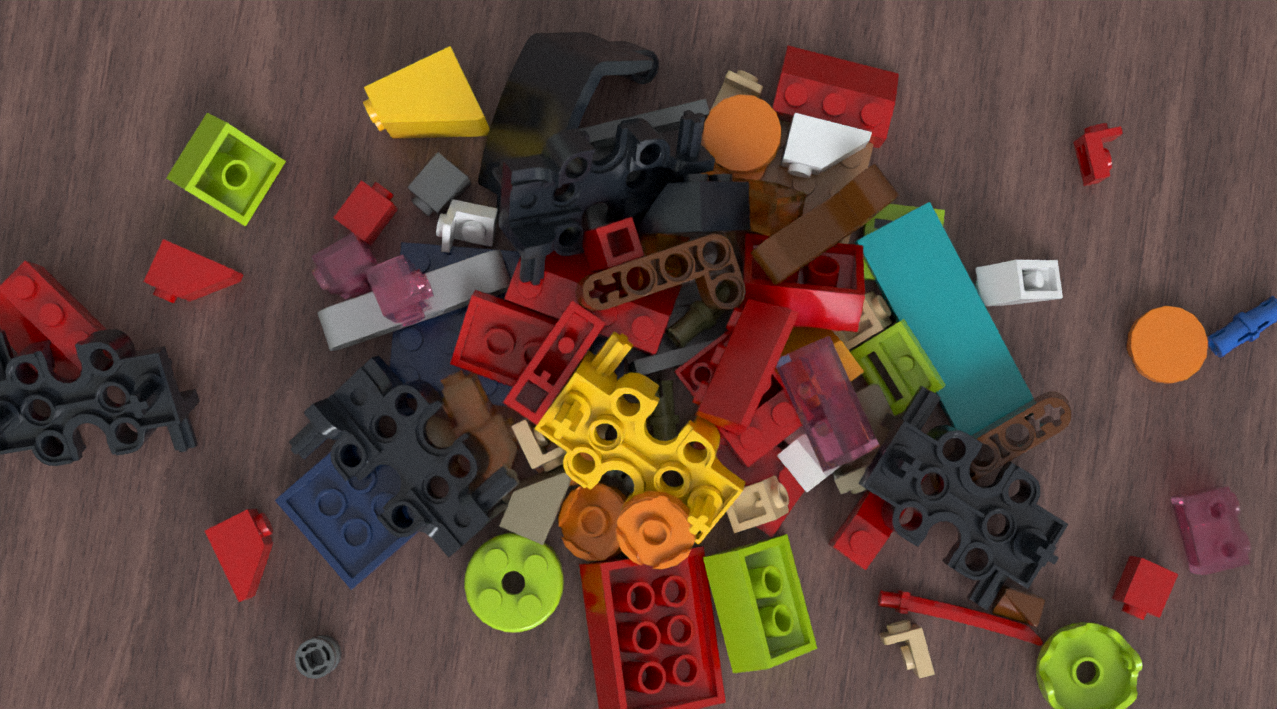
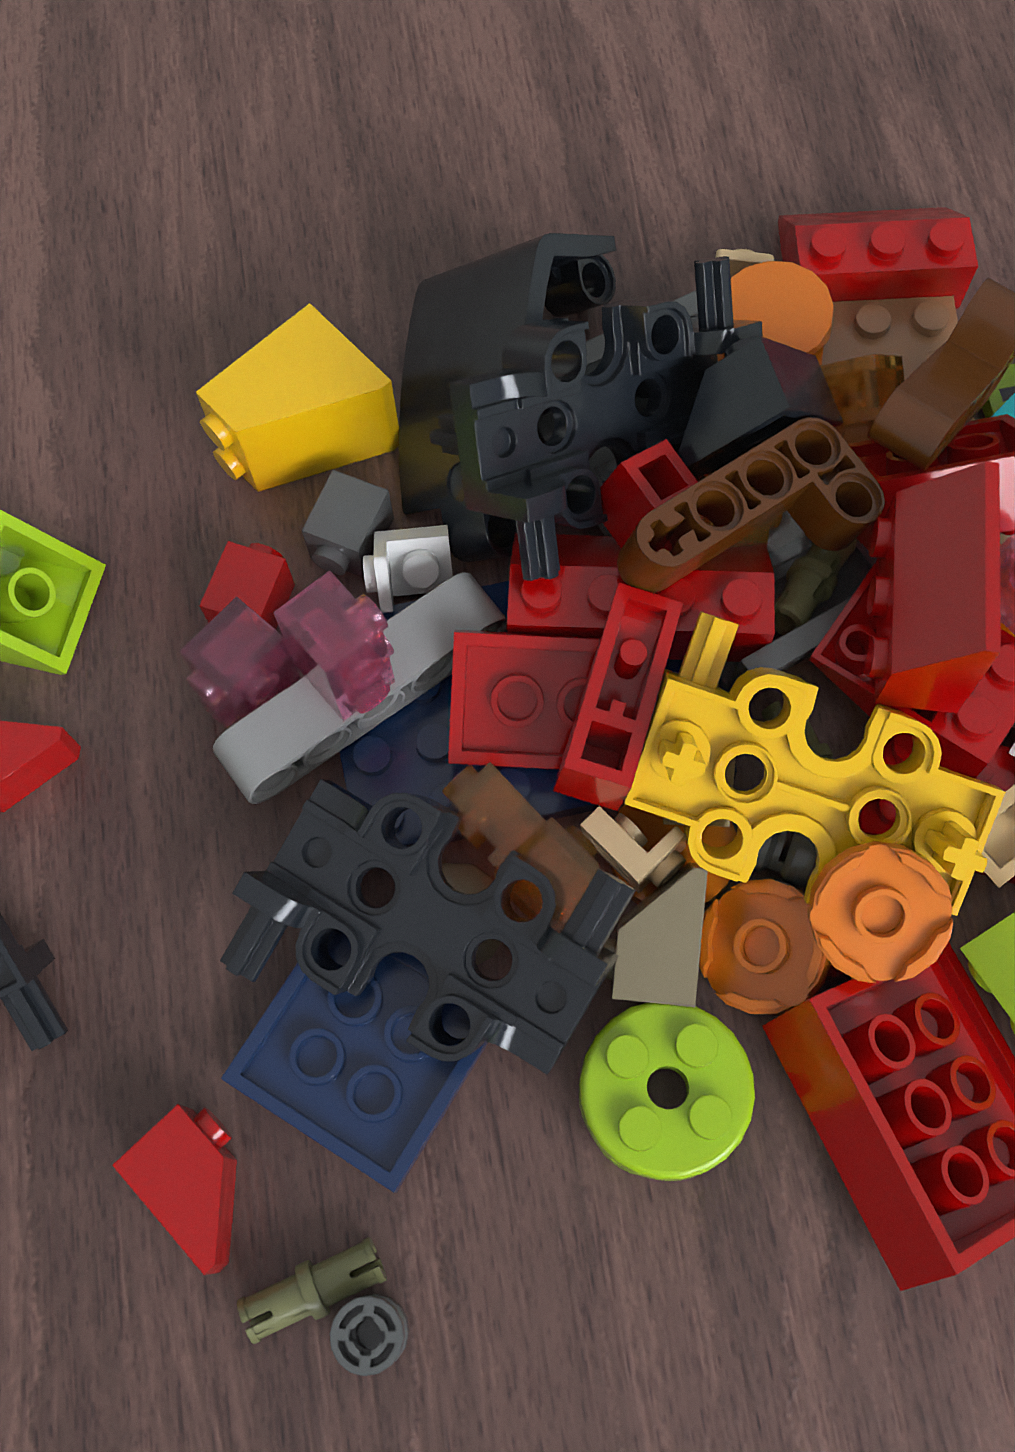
camera: 15 degrees left, 15 degrees down
(294, 624) = (311, 1290): none -> olive pin
(819, 144) = (887, 299): white slope -> none

